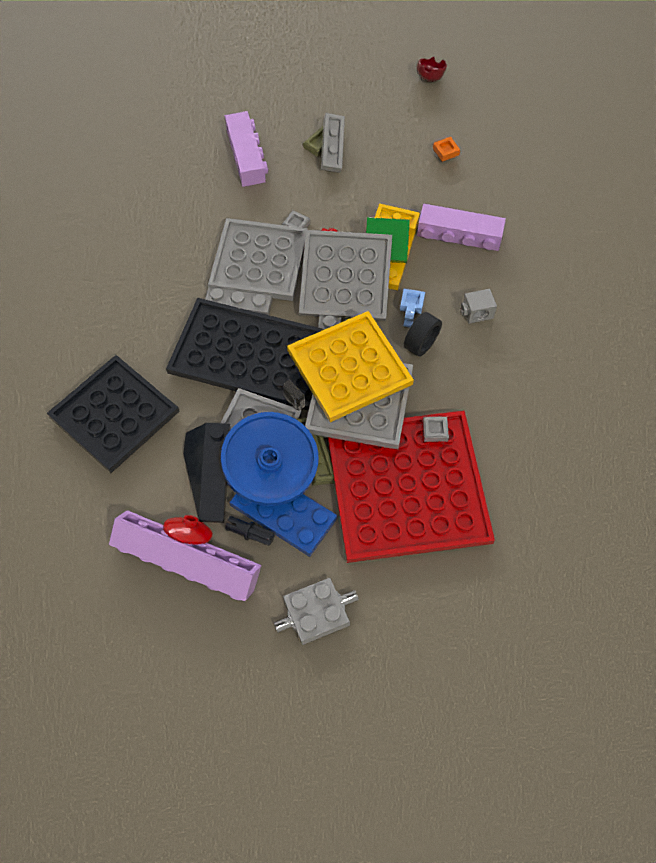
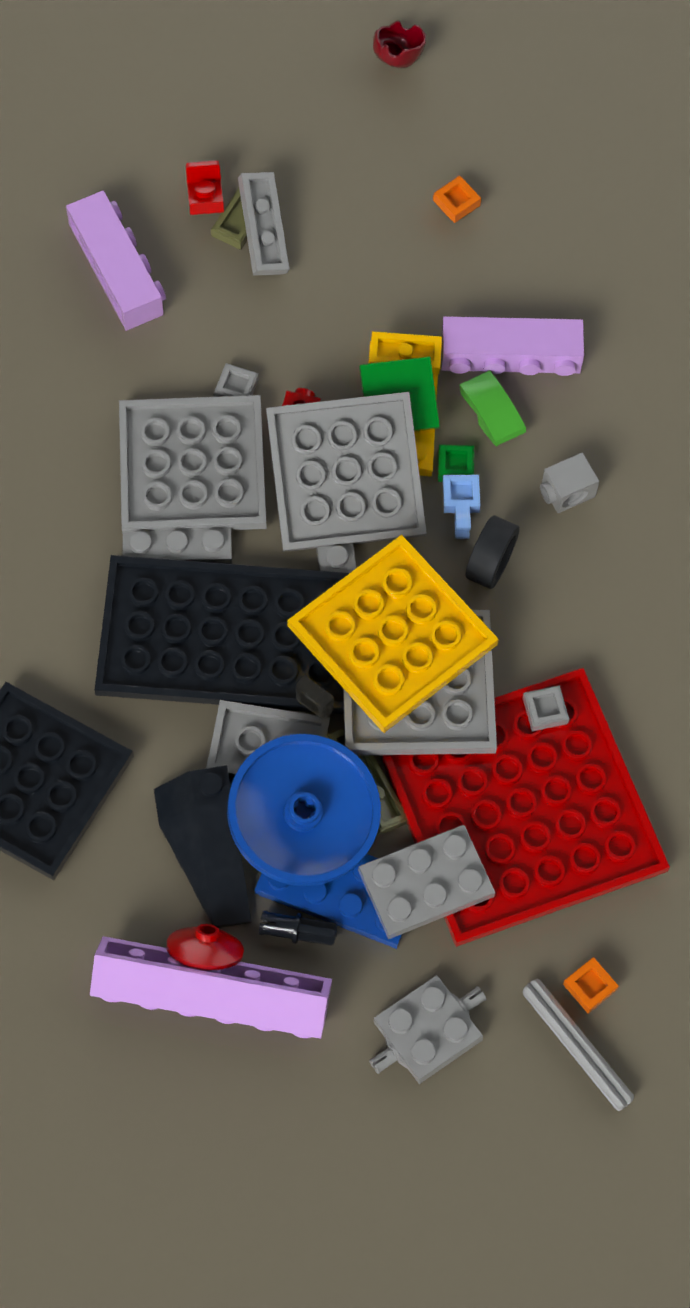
camera: 15 degrees left, 5 degrees up
(305, 120) = (204, 187): none -> red bracket
(336, 518) = (426, 881): none -> light grey plate
(411, 642) = (578, 1044): none -> light grey axle
(413, 282) = (455, 460): none -> green tile
(427, 604) = (590, 985): none -> orange plate
(442, 259) = (493, 407): none -> bright green slope

